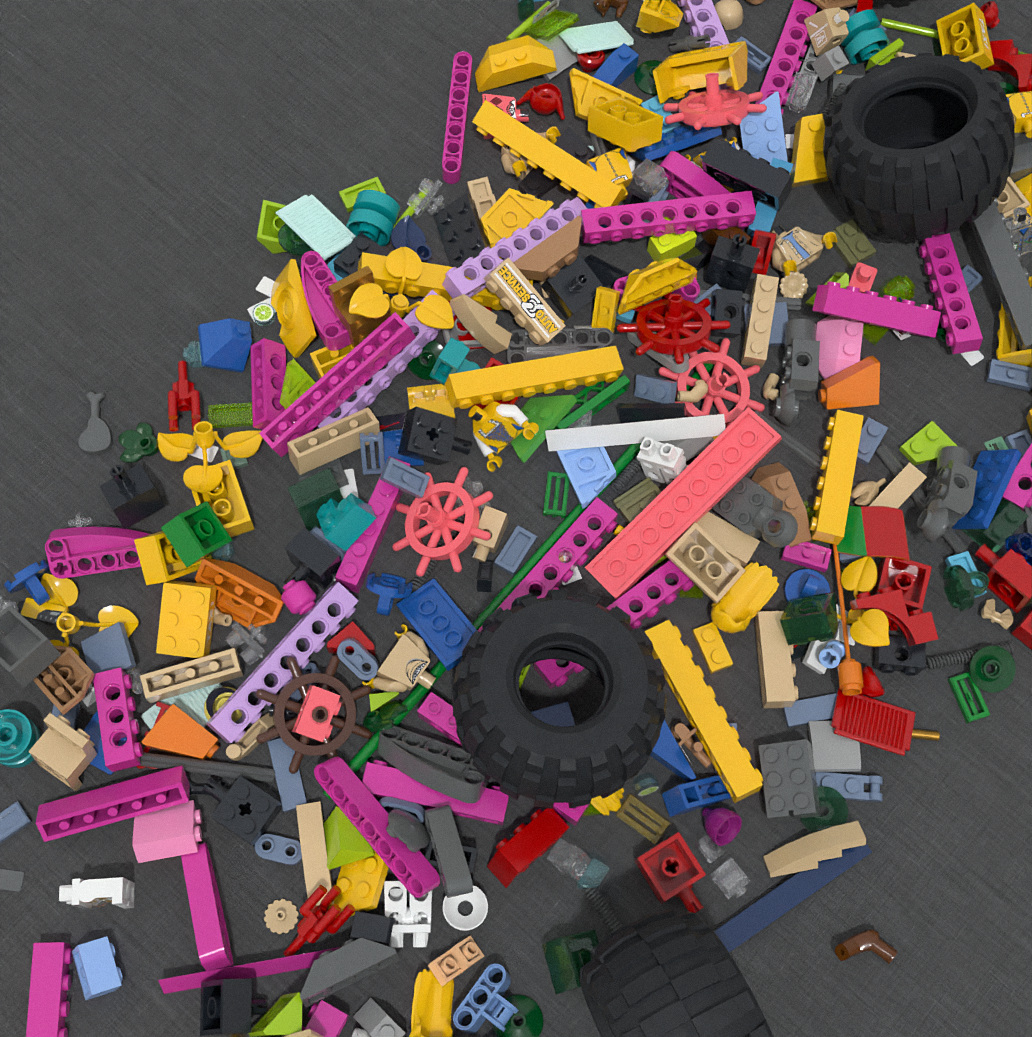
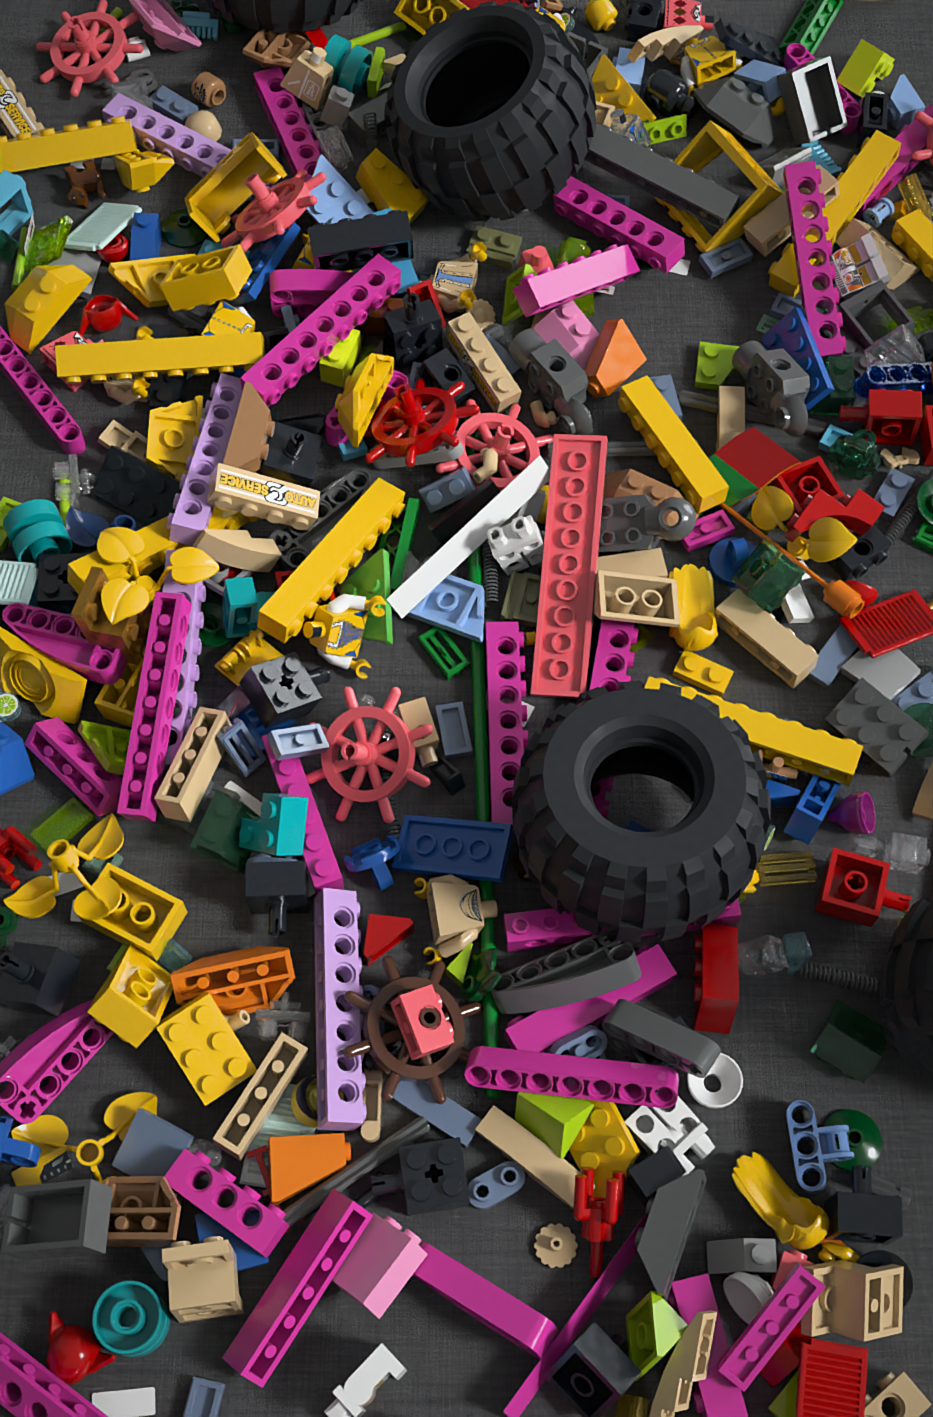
camera: 40 degrees left, 5 degrees down
(196, 534) = (147, 954): green brick -> none
(298, 597) = (299, 932): dark pink head -> none
(355, 660) = (407, 943): sand blue plate -> none
(408, 829) = (605, 1052): dark grey dish -> none
(456, 960) = (751, 1136): light nougat slope -> none
(605, 308) = (336, 452): yellow plate -> none
(650, 177) = (271, 310): clear brick -> none
(690, 43) = (194, 173): dark grey pin -> none
(832, 654) = (812, 585): light blue bush -> none
(868, 491) = (705, 438): tan hand -> none
(965, 635) = (893, 492): none -> sand blue plate

